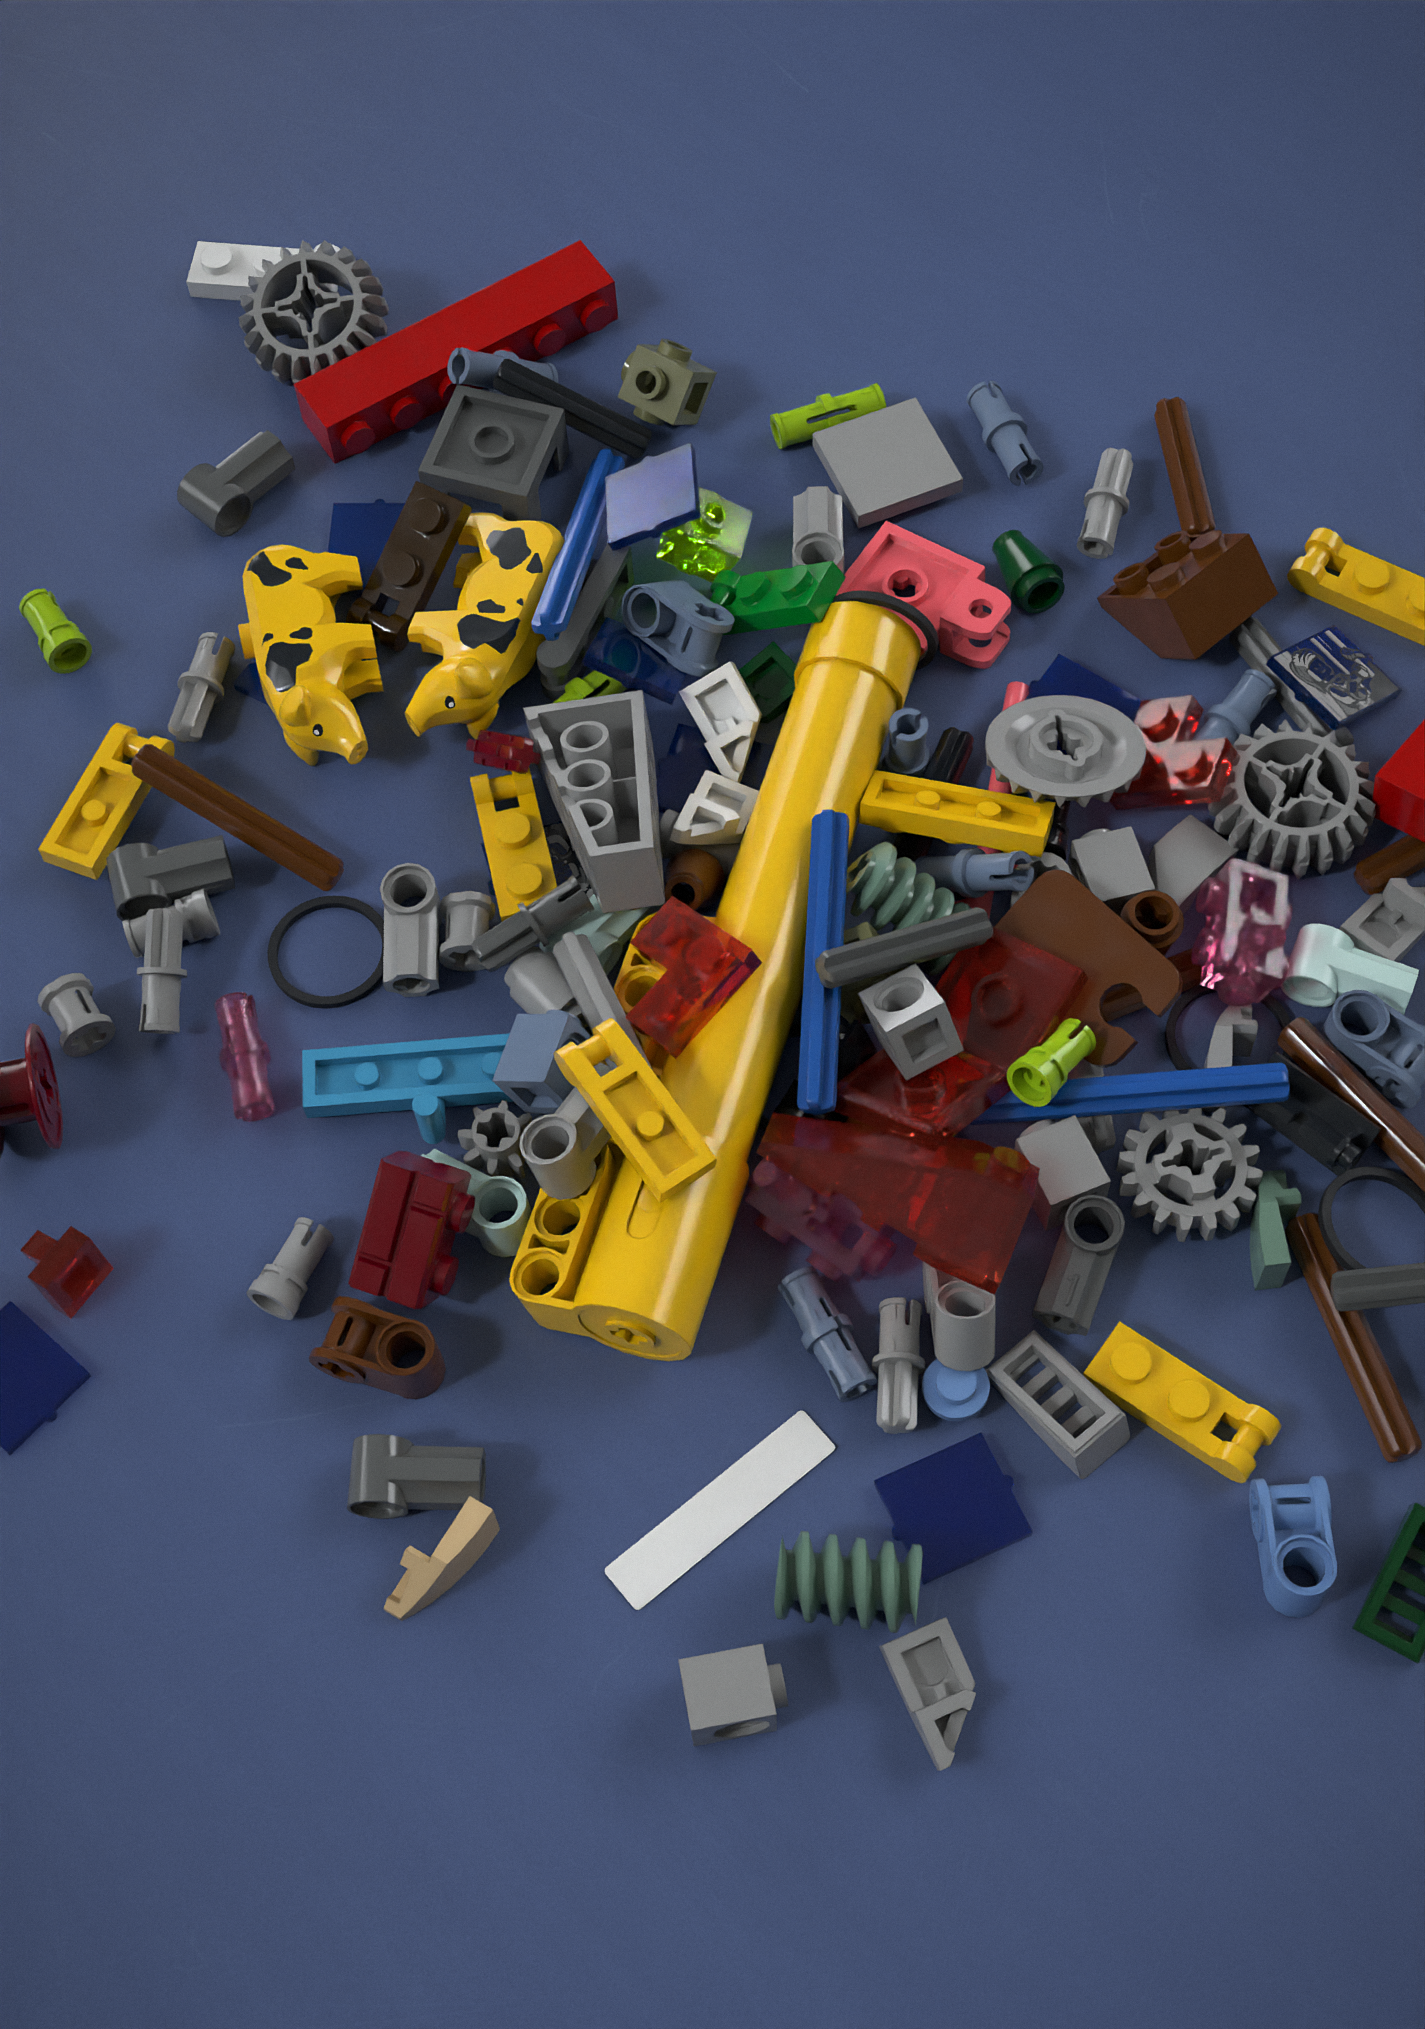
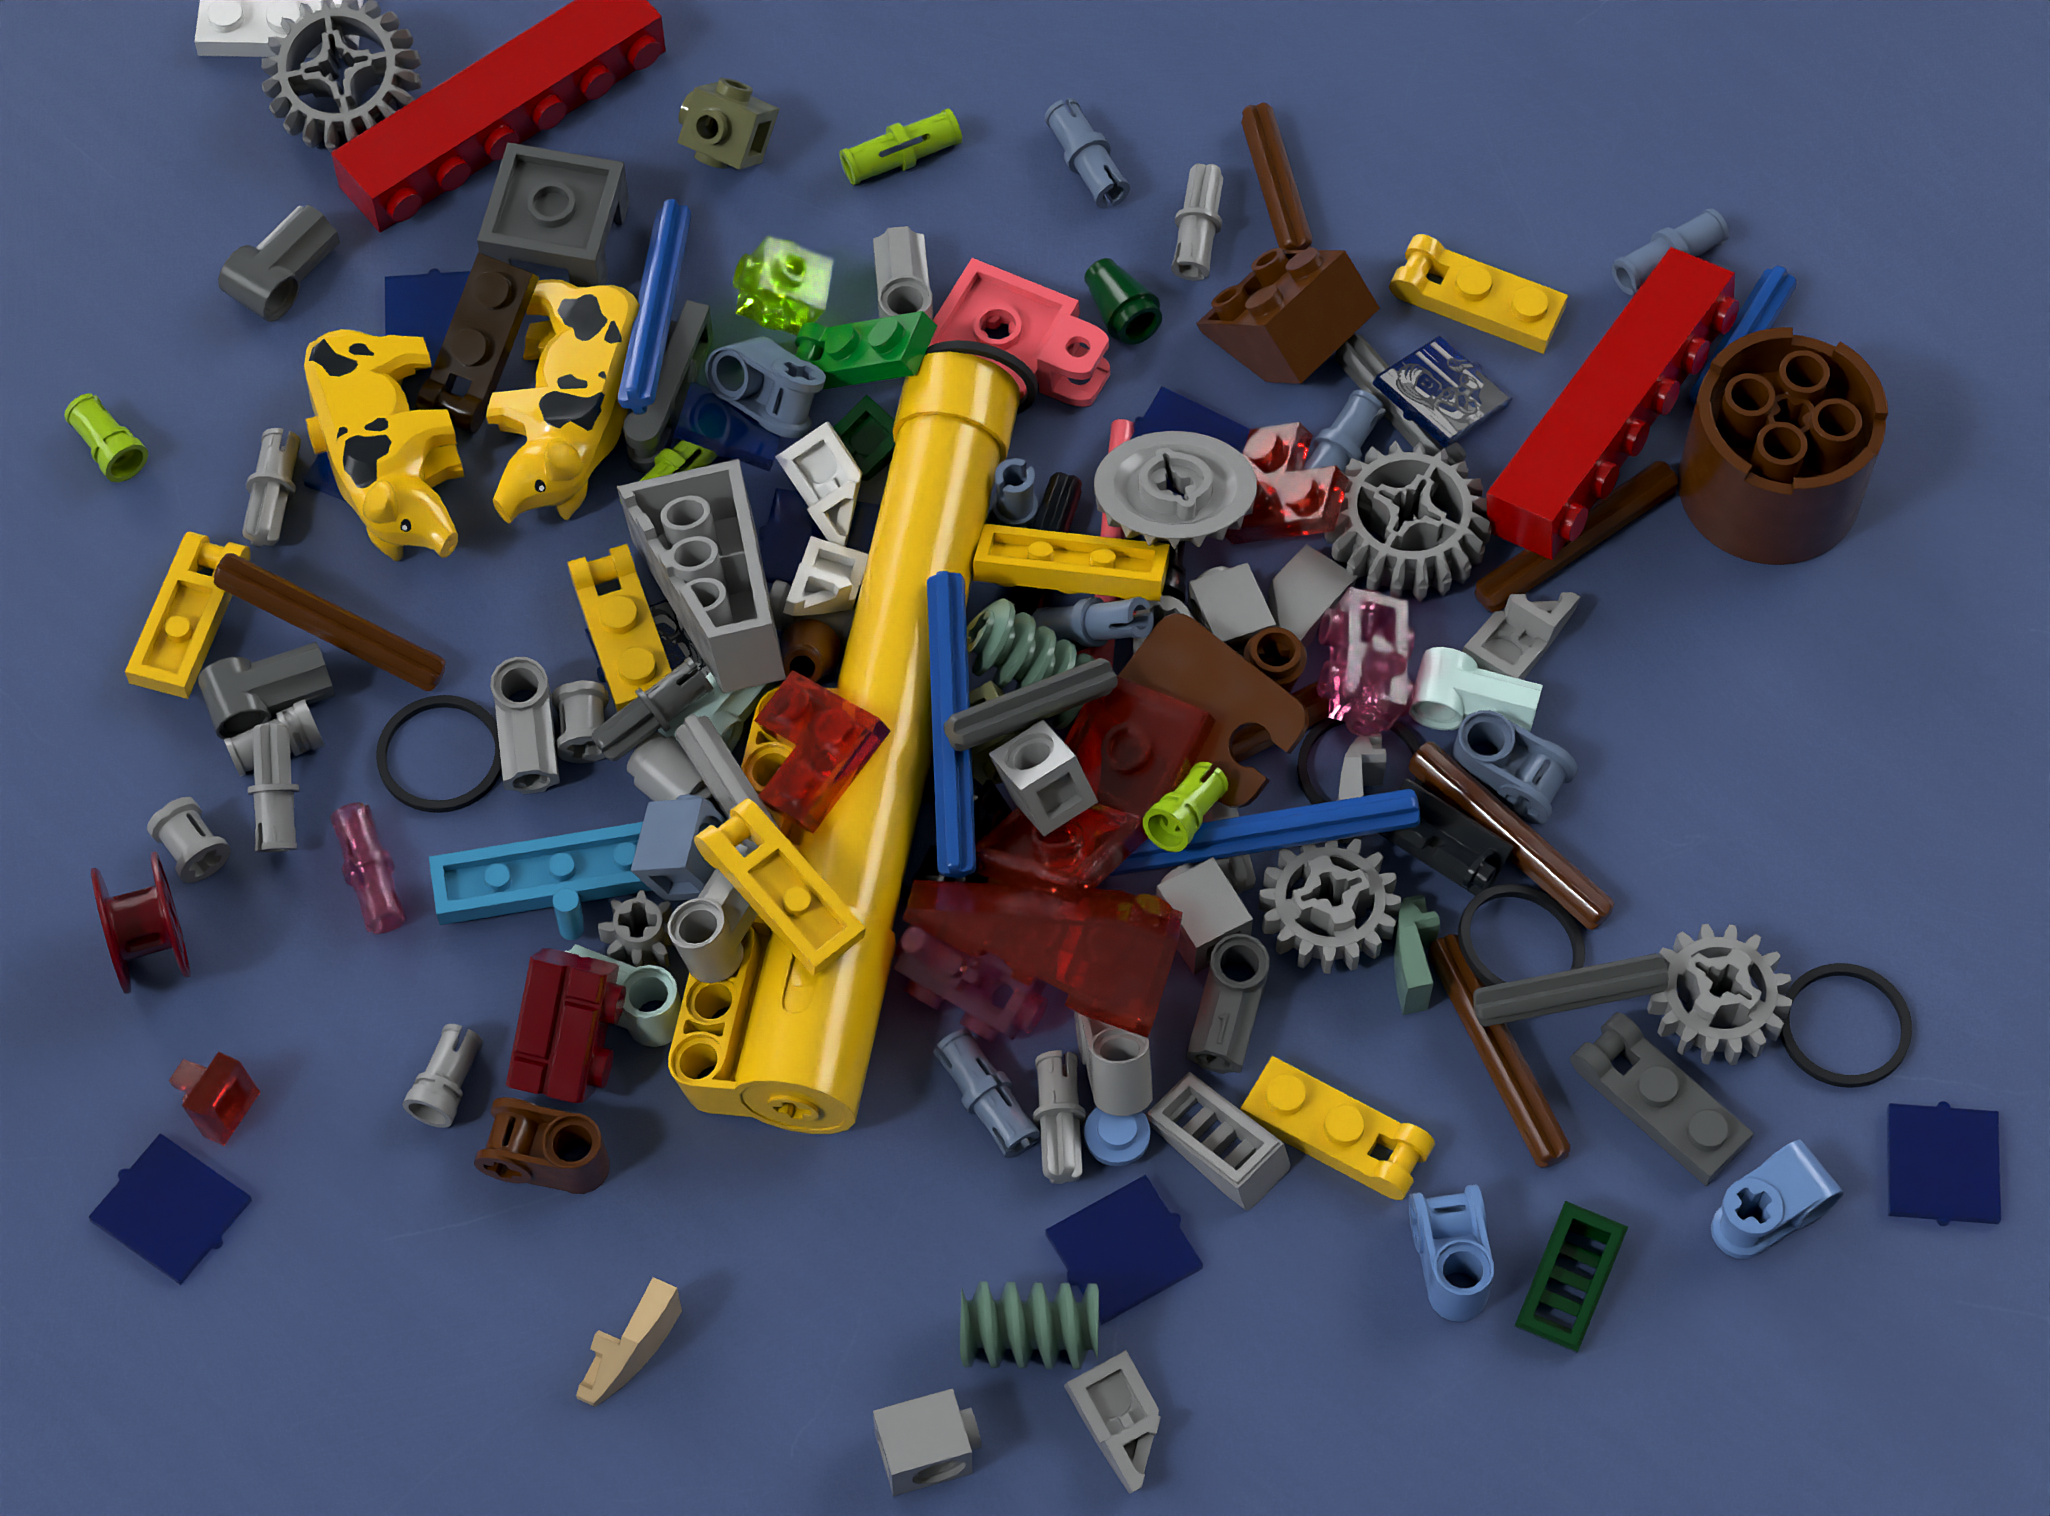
camera: 10 degrees left, 0 degrees up
(396, 1476) = (573, 1267): dark grey piece -> none
(480, 368) = (552, 125): sand blue pin -> none
(503, 751) = (600, 532): dark red axle -> none
(579, 410) = (640, 162): black axle -> none
(652, 497) = (727, 252): clear blue piece -> none
(719, 1510) = (896, 1272): white sticker -> none
(887, 462) = (967, 193): light grey tile -> none

